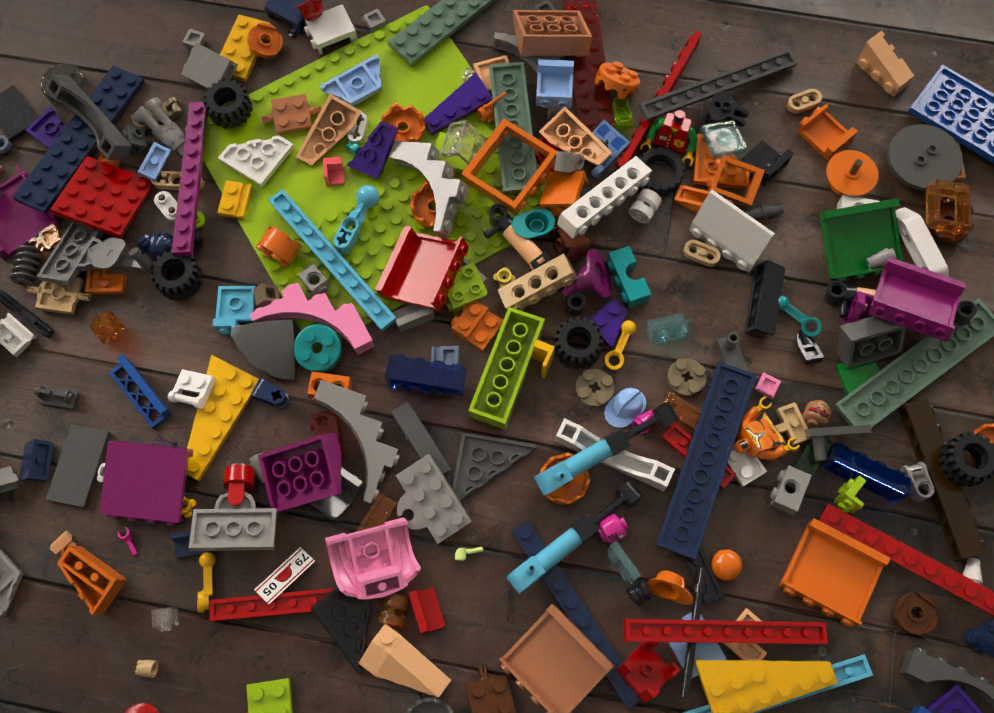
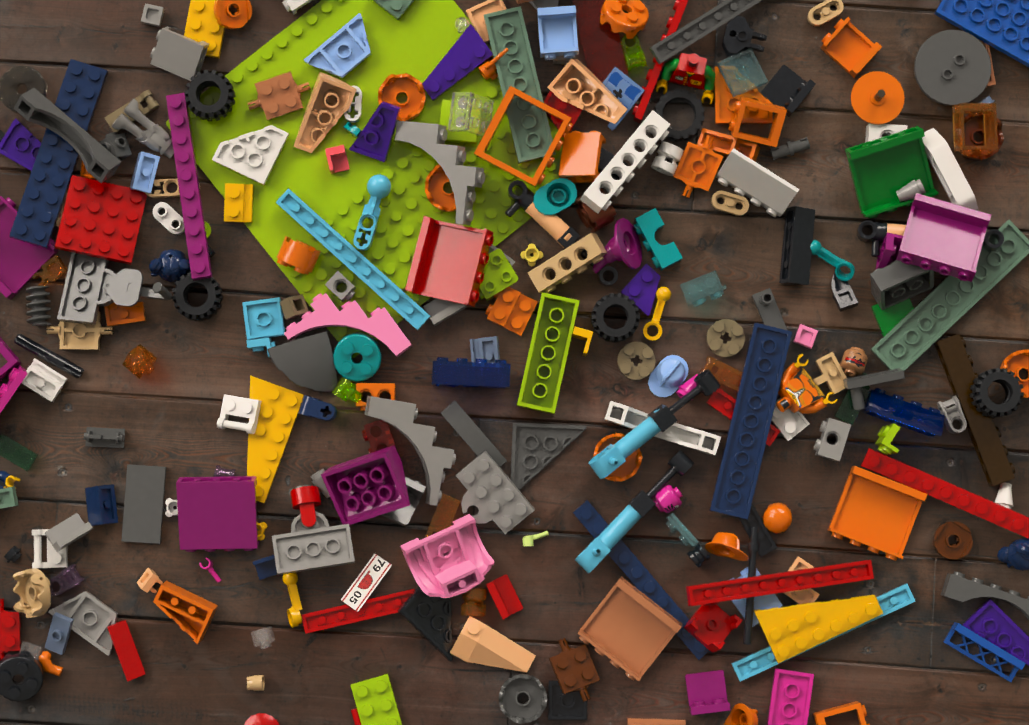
camera: 10 degrees left, 15 degrees up
(19, 613) = (126, 650): none -> red tile
(143, 387) = (193, 419): blue fence -> none
(300, 379) = (346, 390): none -> clear neon green pin
(568, 162) = (583, 125): light grey piece -> none
(674, 216) = (698, 166): none -> orange plate

